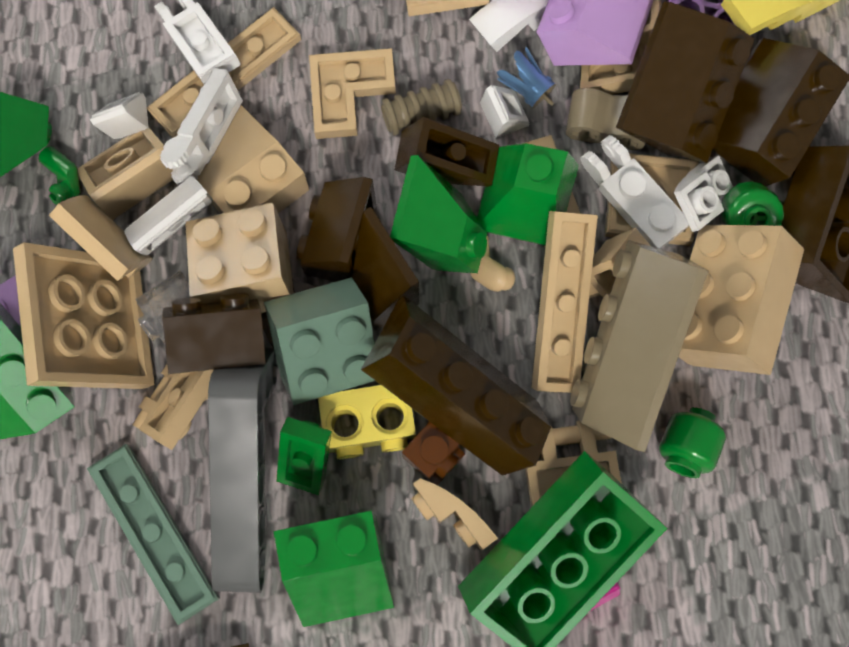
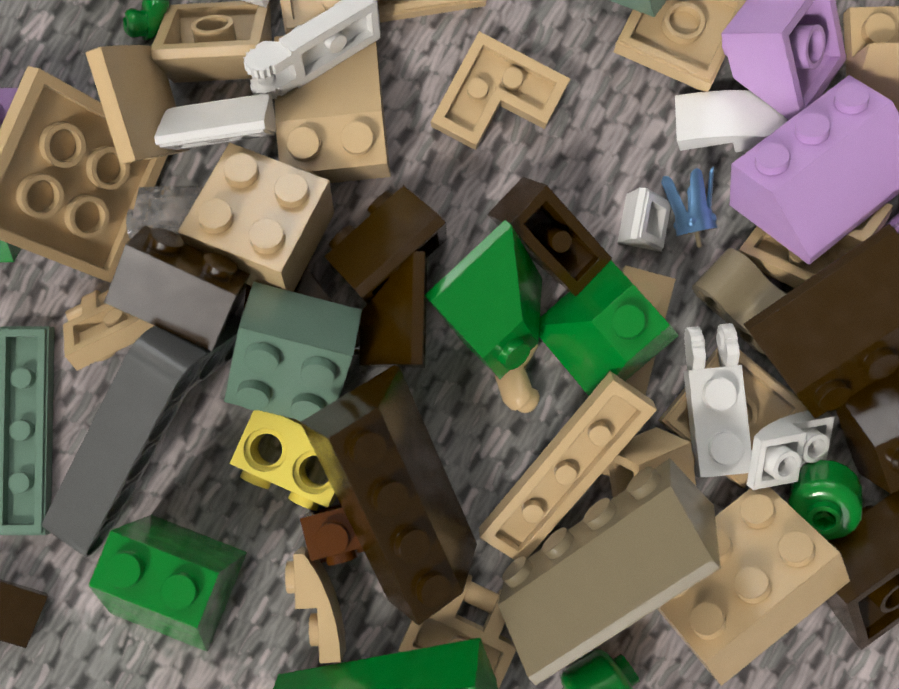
camera: 35 degrees right, 10 degrees up
(303, 455) = (205, 454): green plate -> none
(429, 103) = (560, 162): dark tan piece -> none

